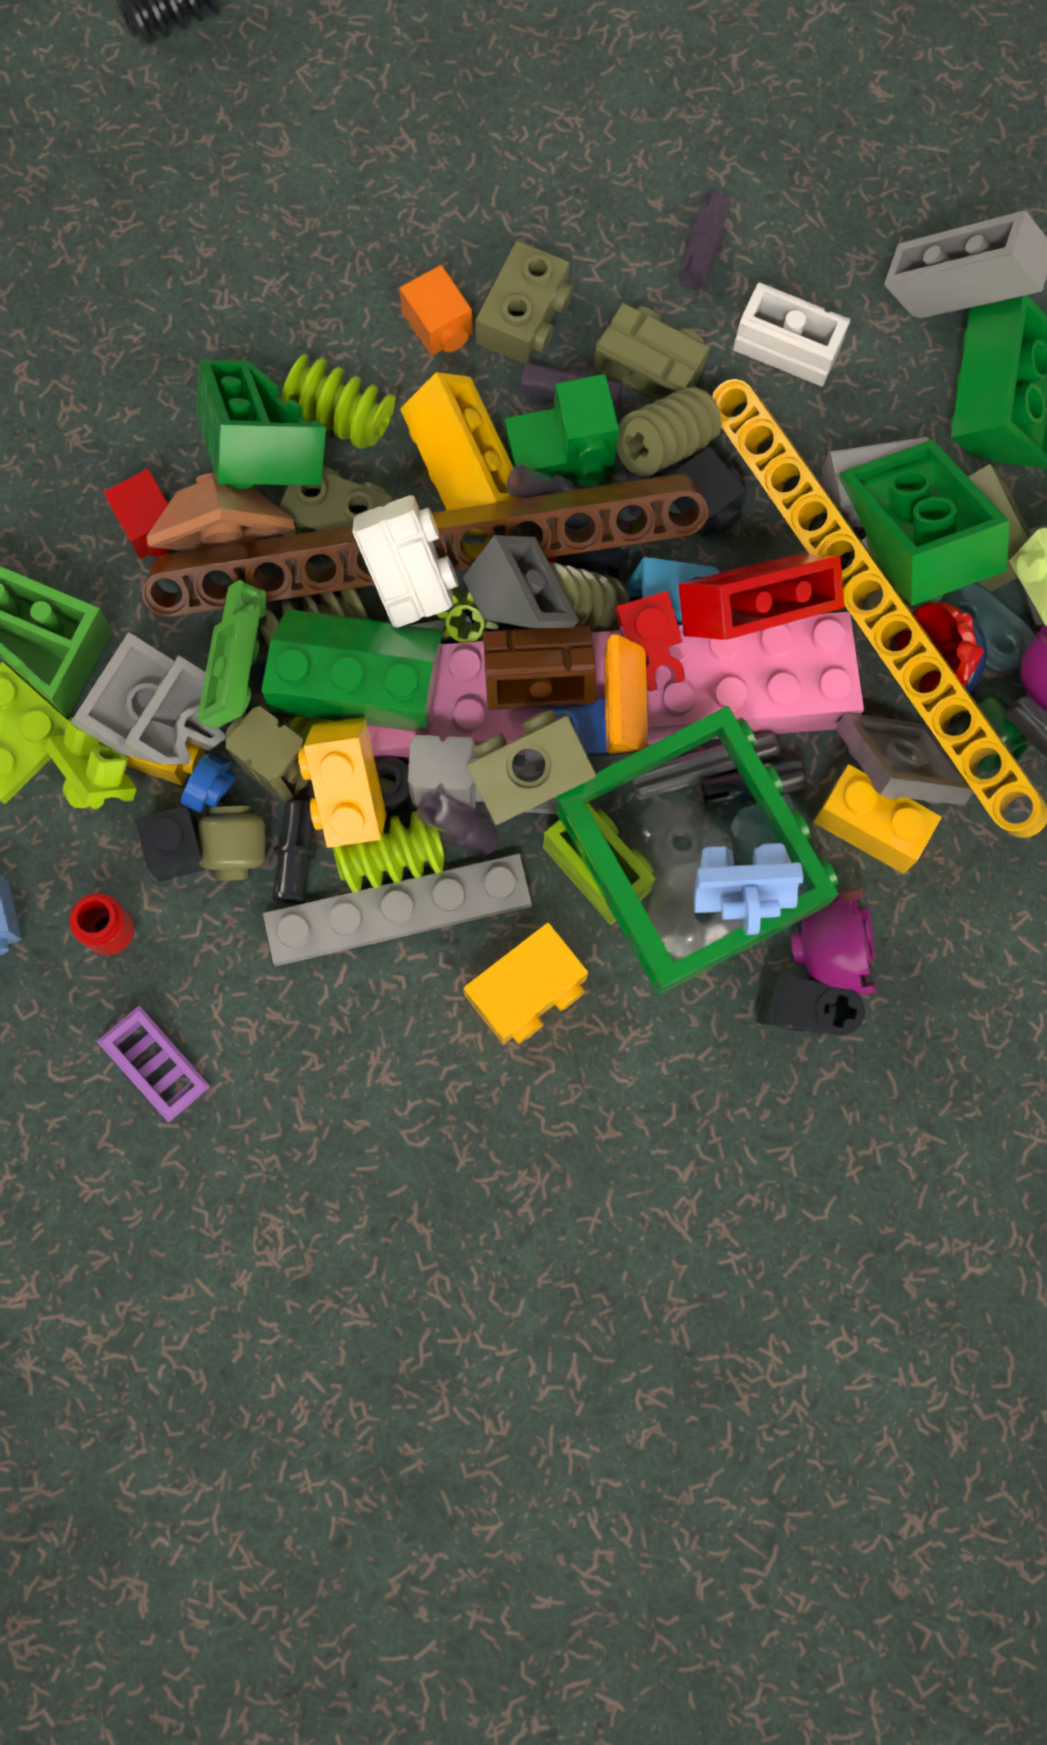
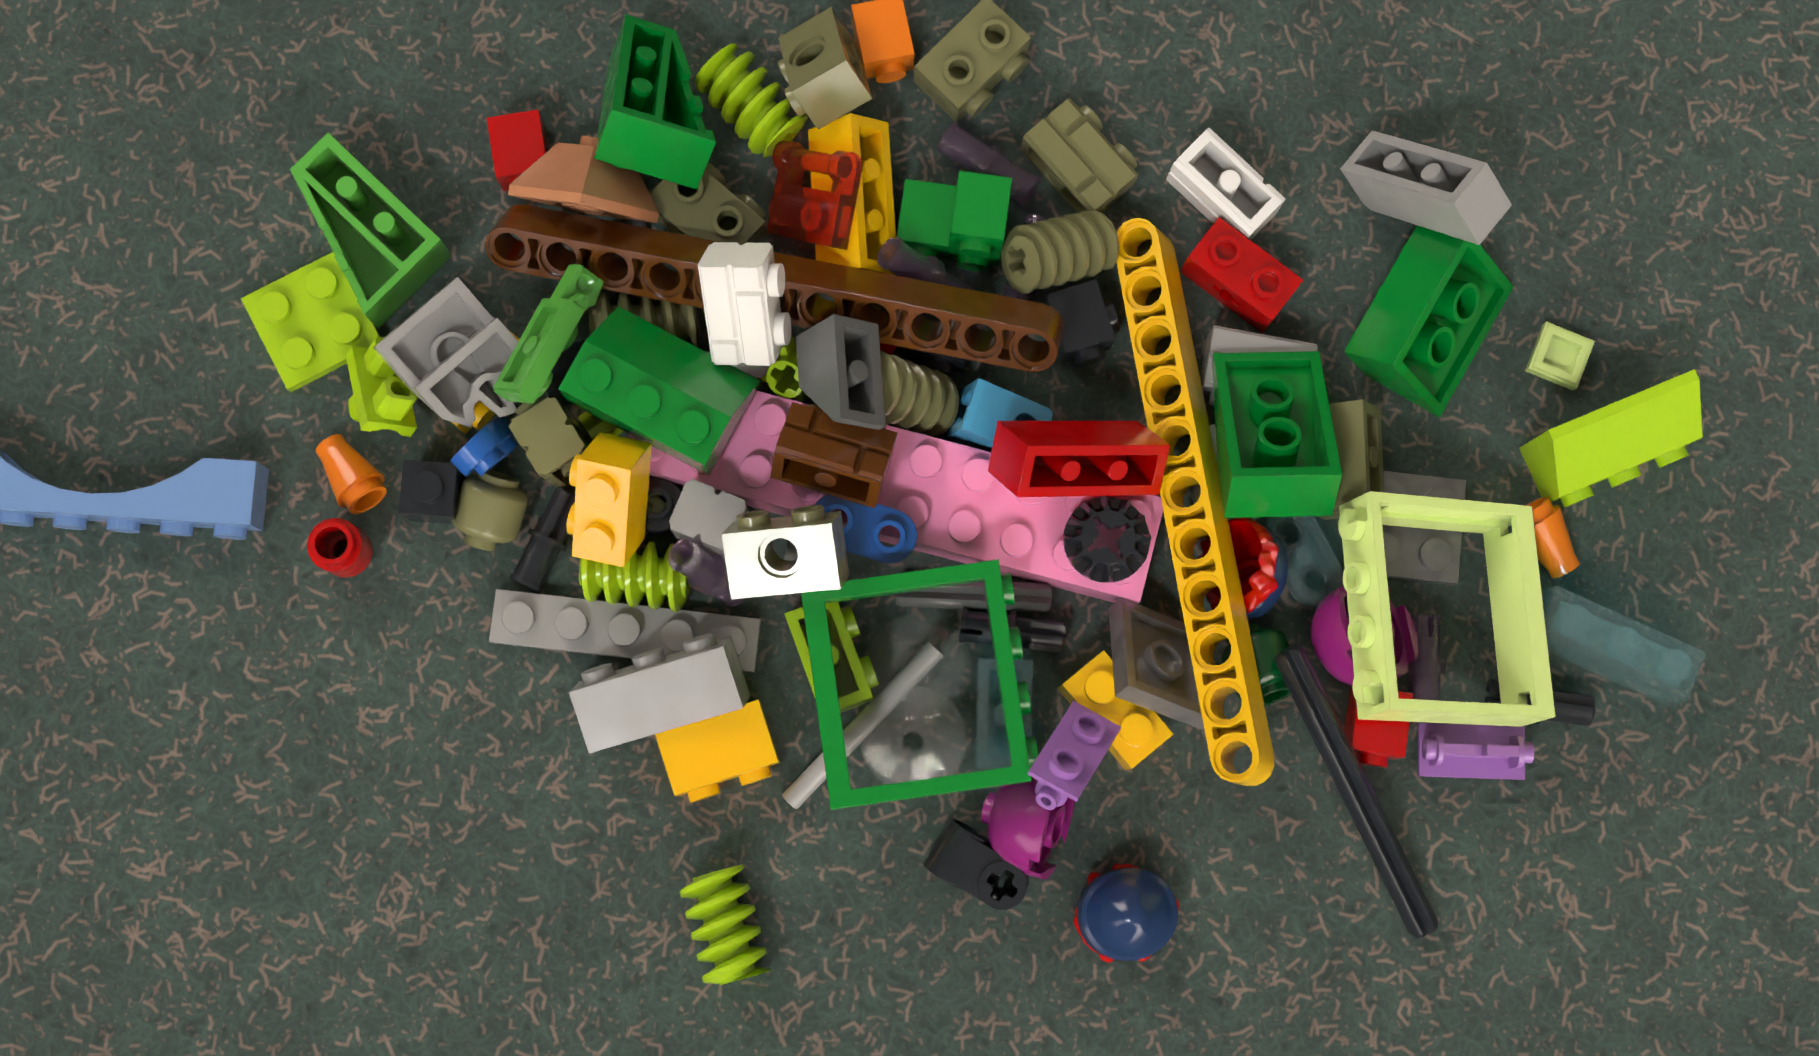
camera: 15 degrees right, 5 degrees up
(89, 858) = (351, 477): none -> orange cone
(124, 1061) = (308, 663): medium lavender slope -> none
(395, 348) = (823, 69): none -> olive brick
(436, 473) = (810, 212): none -> clear red plate
(452, 949) = (659, 692): none -> light grey brick
(593, 1146) = (724, 926): none -> lime piece
(625, 696) = (905, 516): light orange slope -> none
(654, 627) = (955, 455): red plate -> none
(655, 908) = (867, 720): none -> light grey bar
(704, 240) = (1181, 54): clear purple pin -> none
(747, 890) = (941, 751): light blue hips -> none
(820, 683) = (1103, 564): none -> black gear
(834, 403) = (1240, 275): none -> red brick
(863, 864) = (1071, 756): none -> medium lavender hinge
(960, 1000) = (1126, 913): none -> dark blue hair

